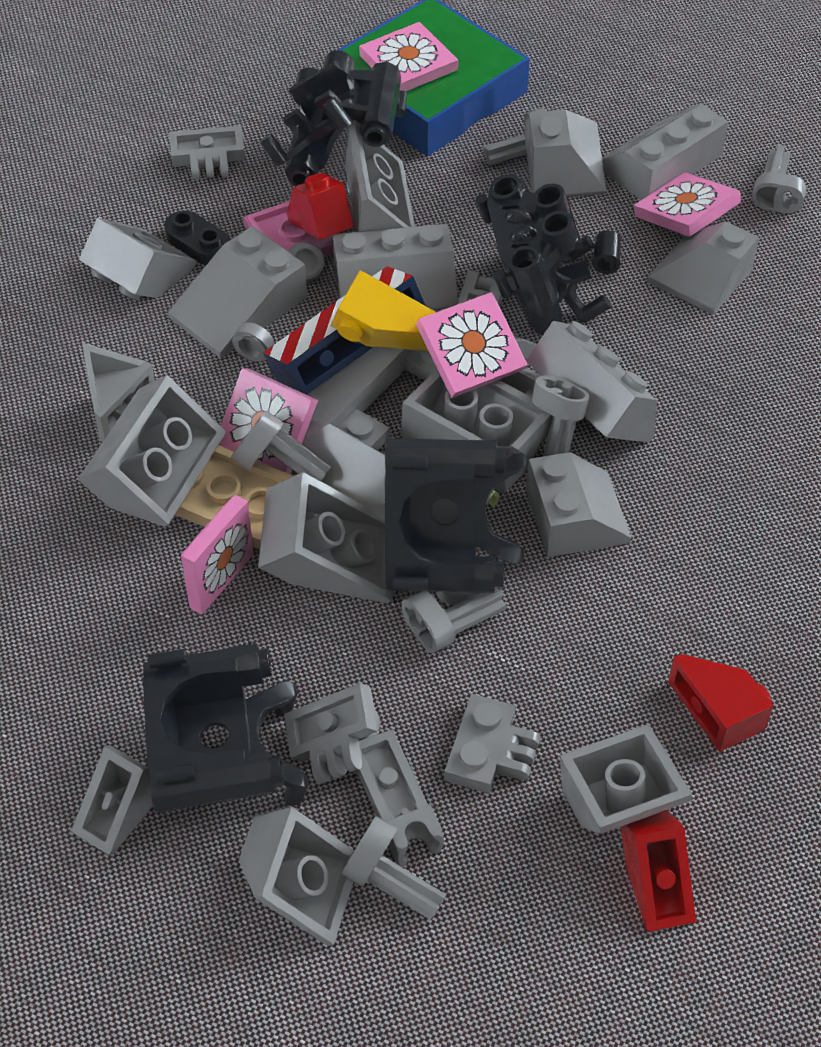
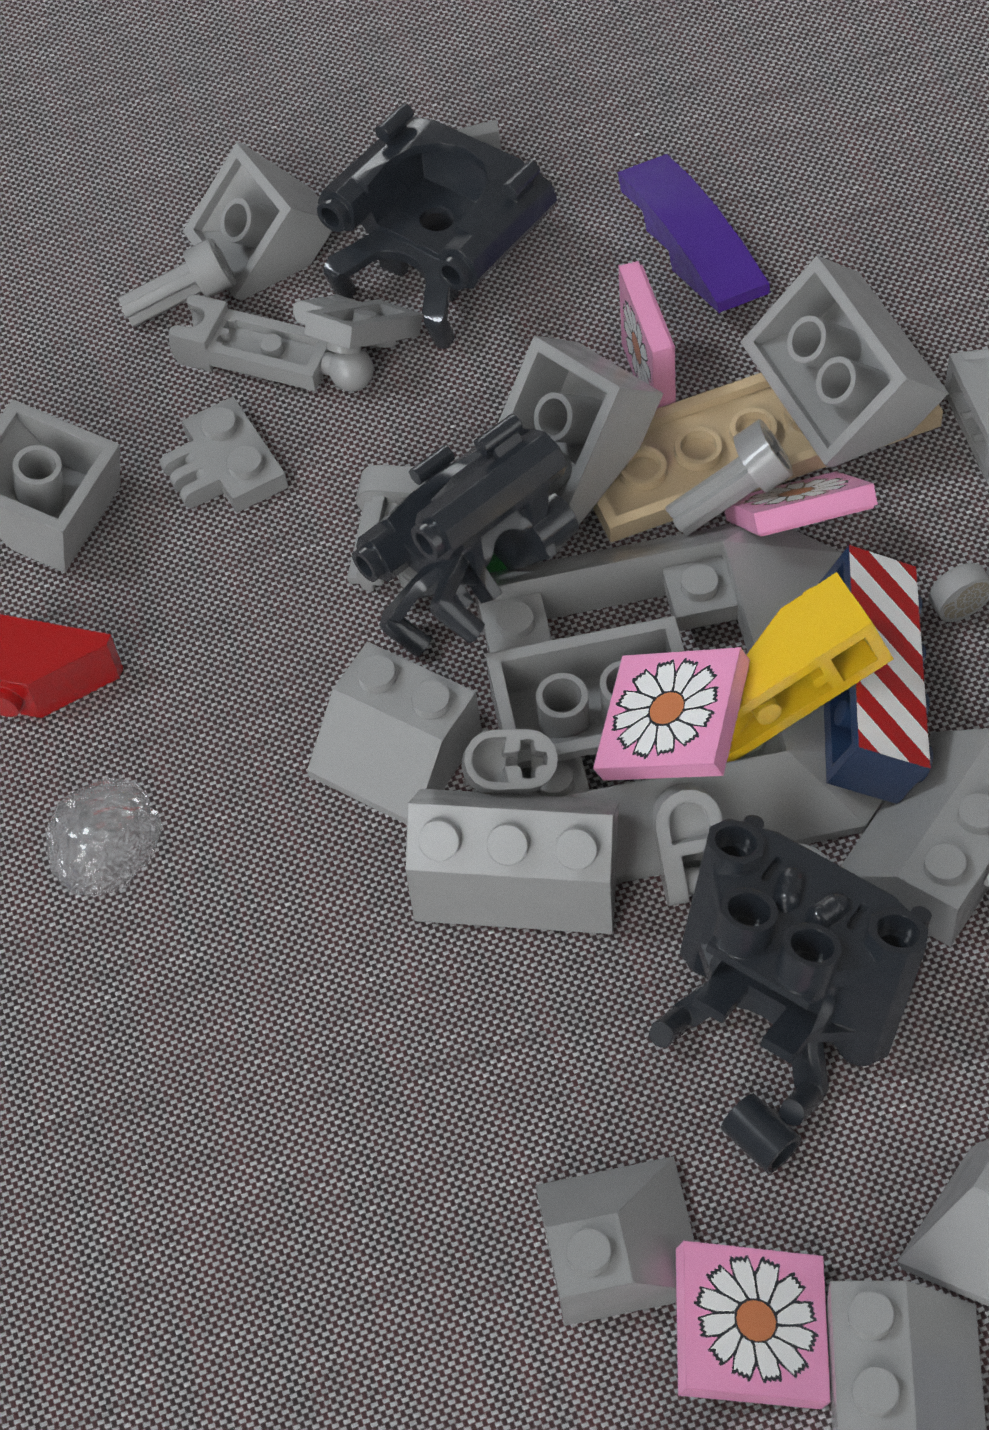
camera: 140 degrees right, 5 degrees up
(87, 618) = (695, 233): none -> dark purple slope
(769, 583) = (102, 836): none -> clear hair

